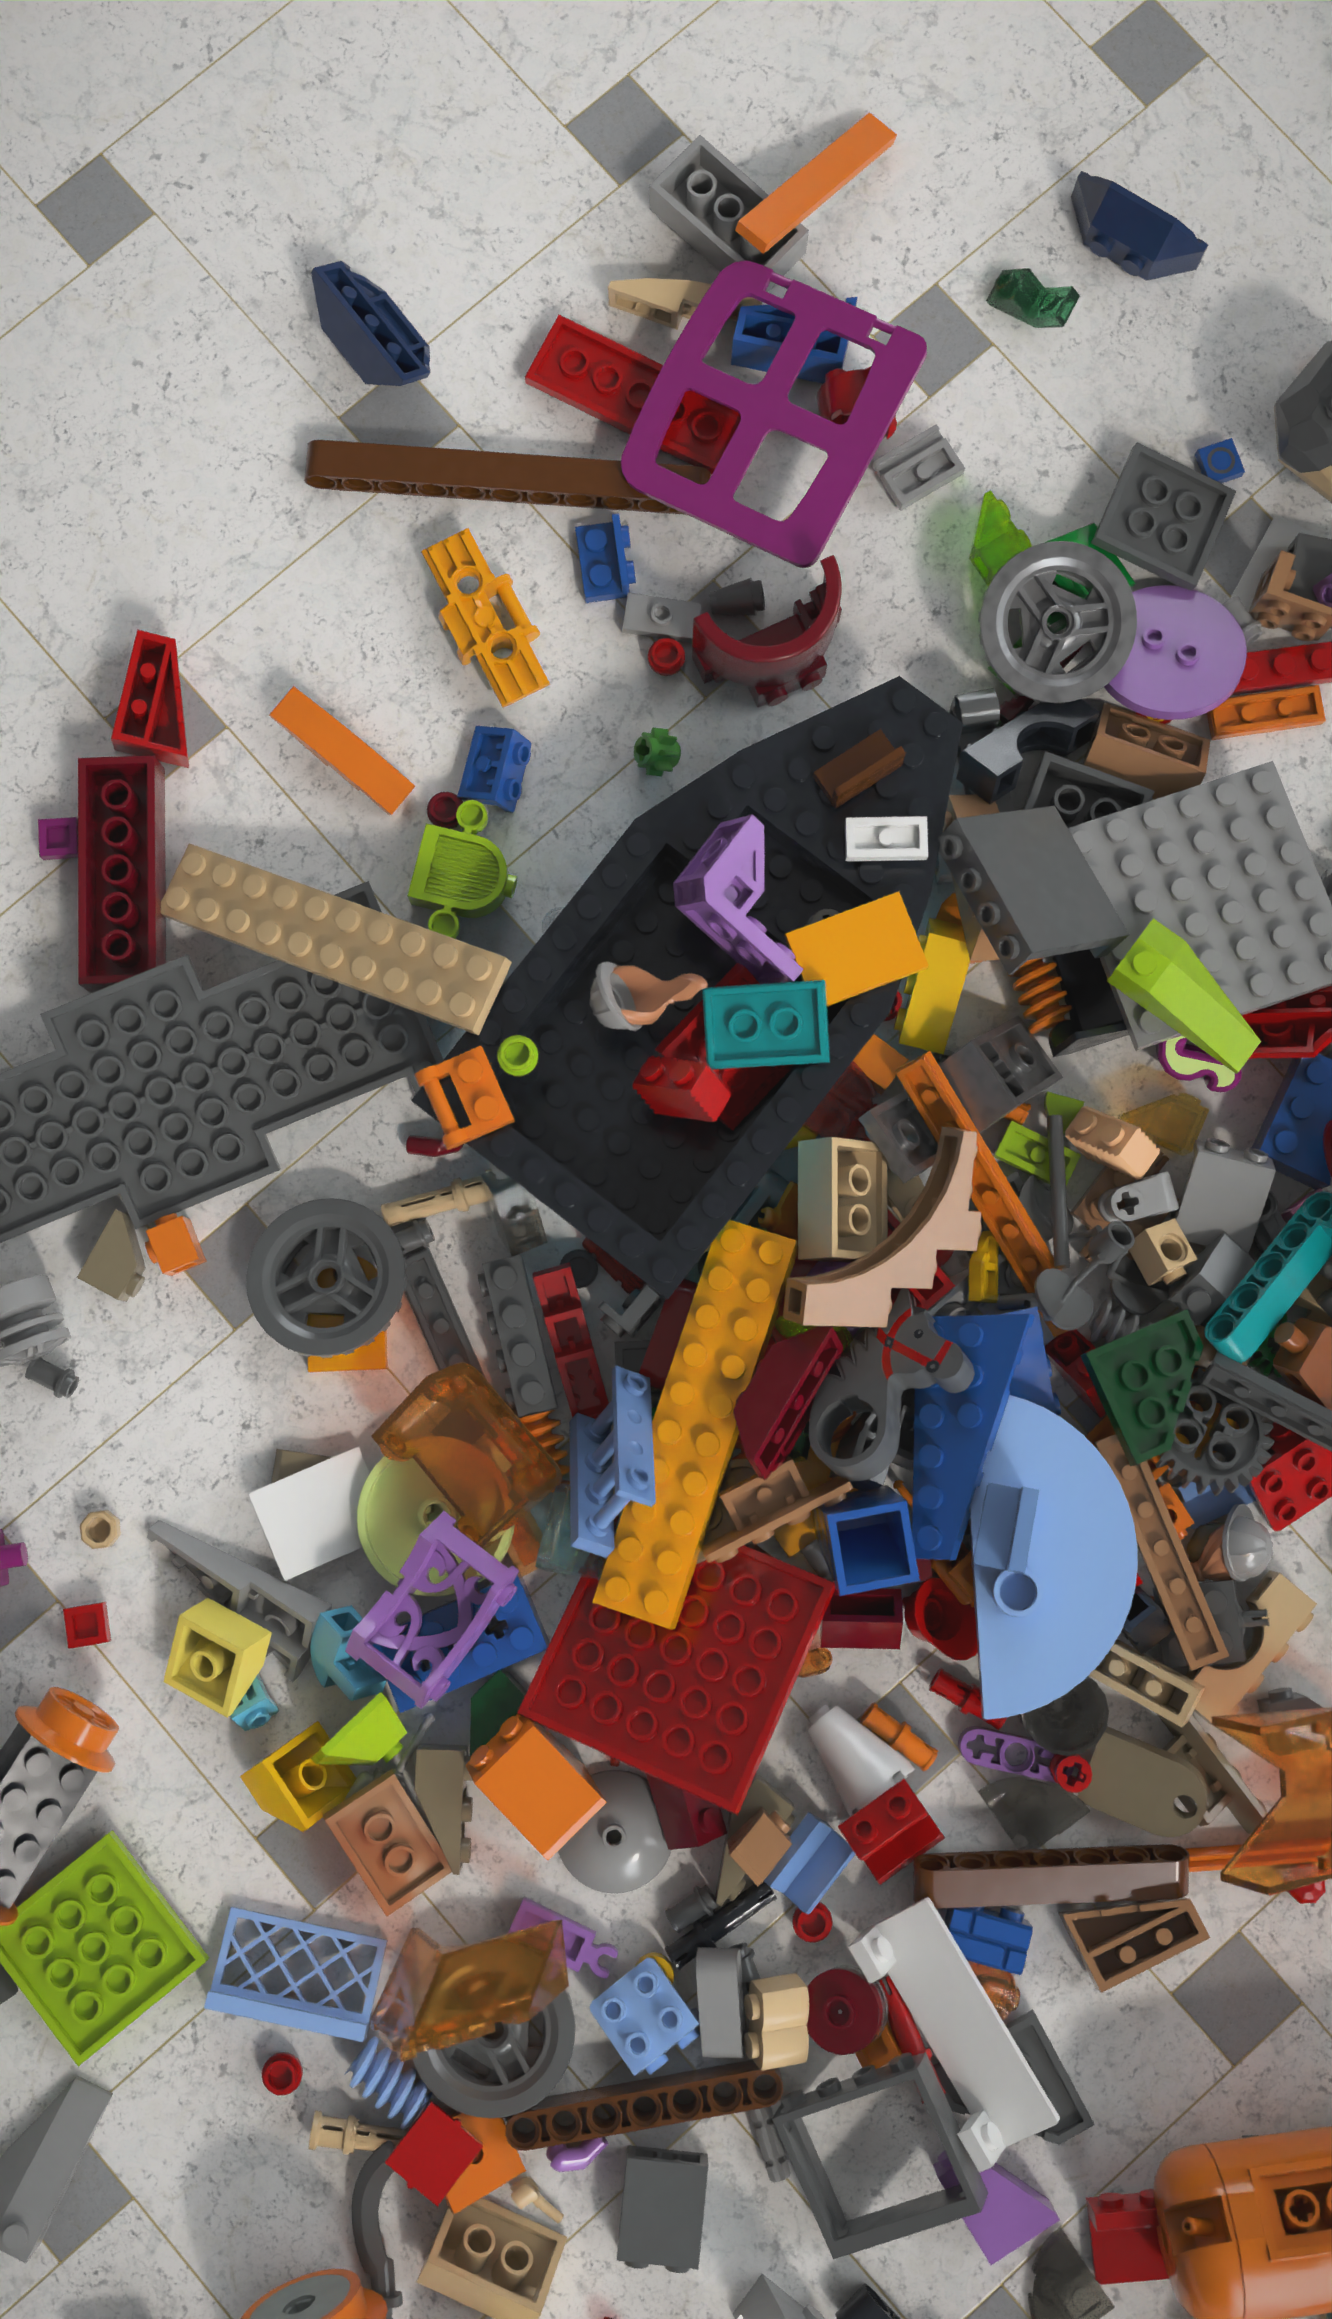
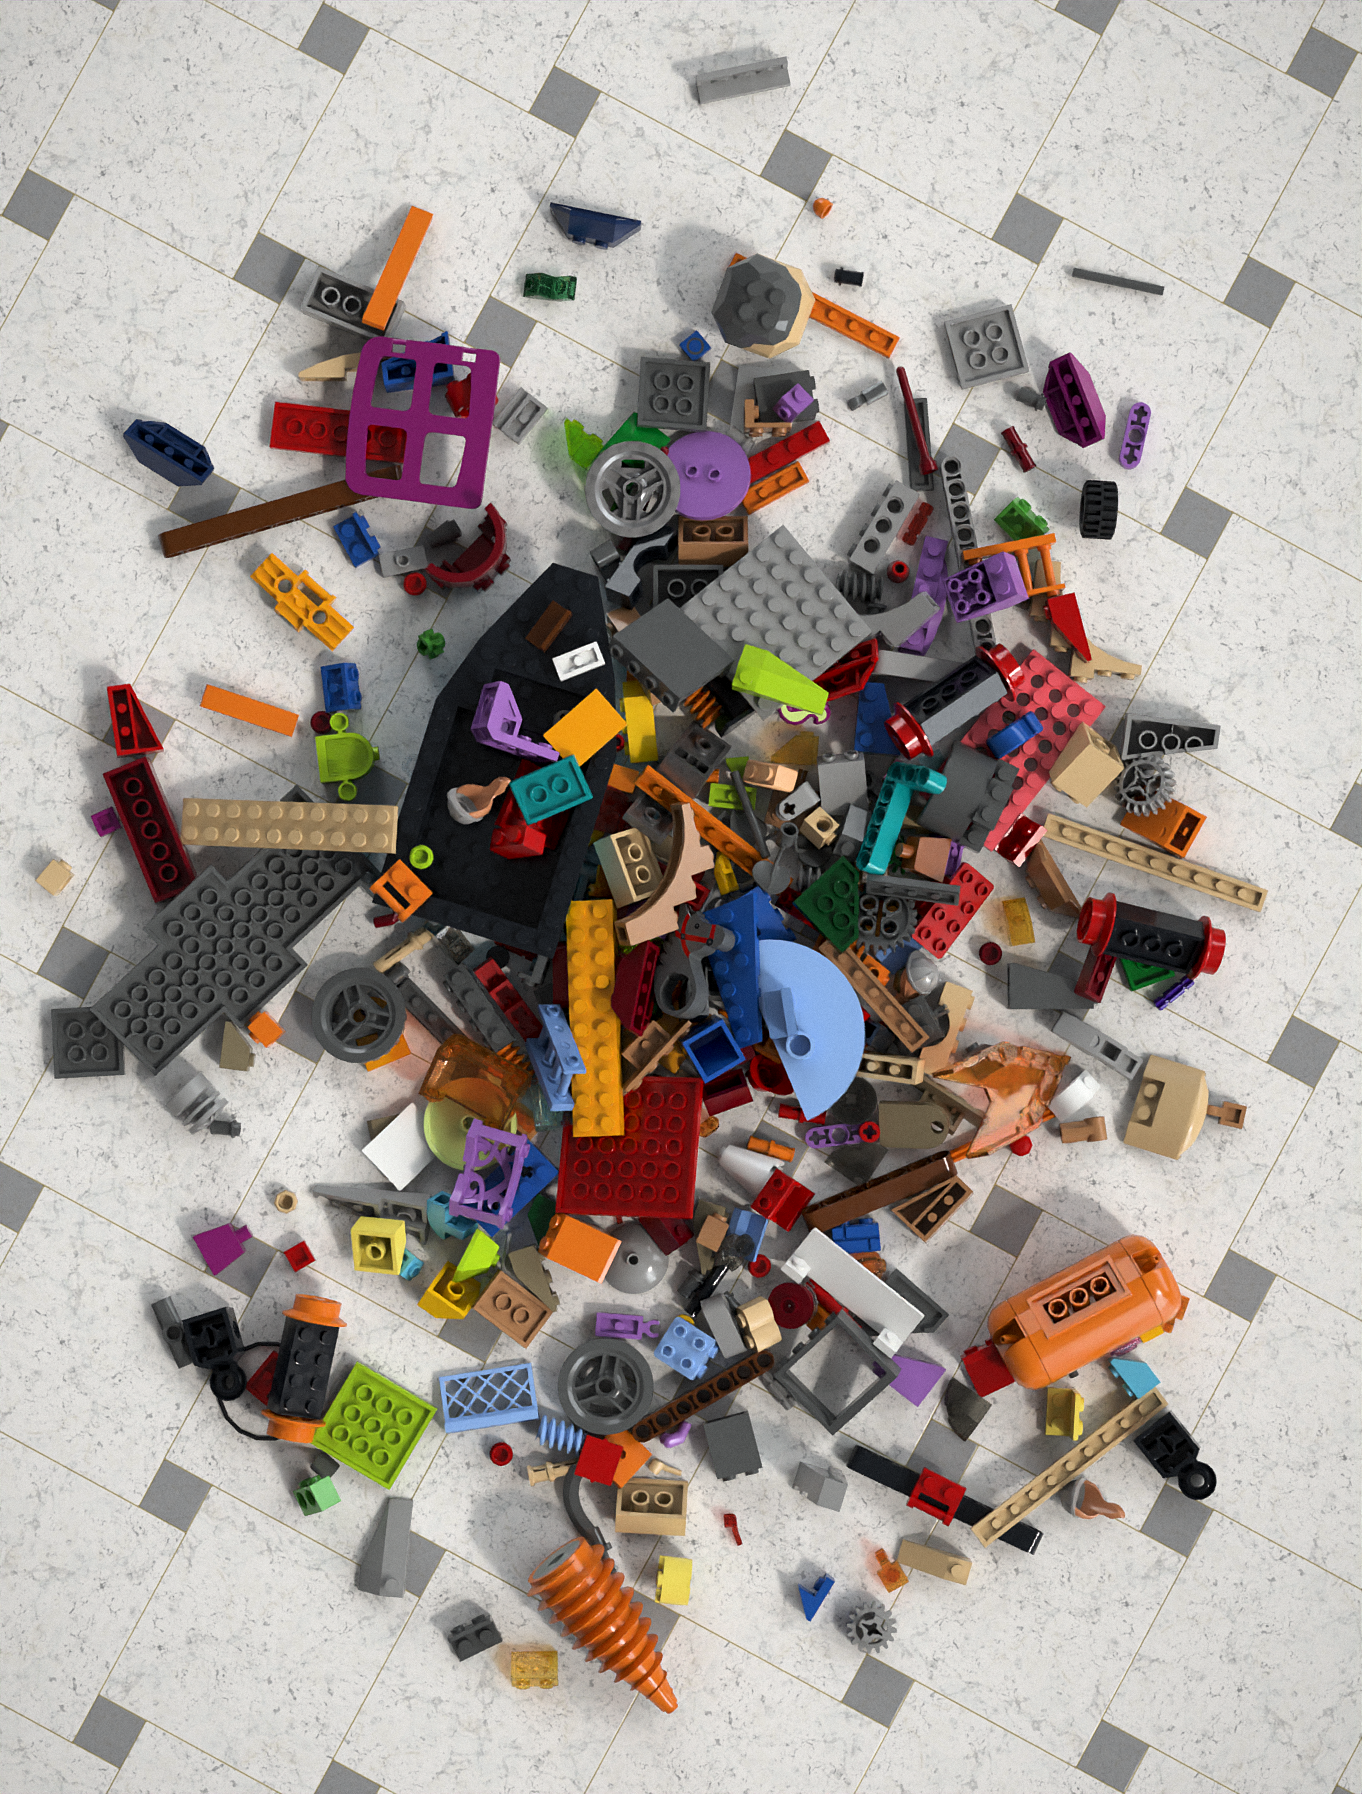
camera: 20 degrees left, 5 degrees up
(461, 1991) = (584, 1359): clear orange windscreen -> none
(784, 1885) = (734, 1250): none -> clear smoke plate

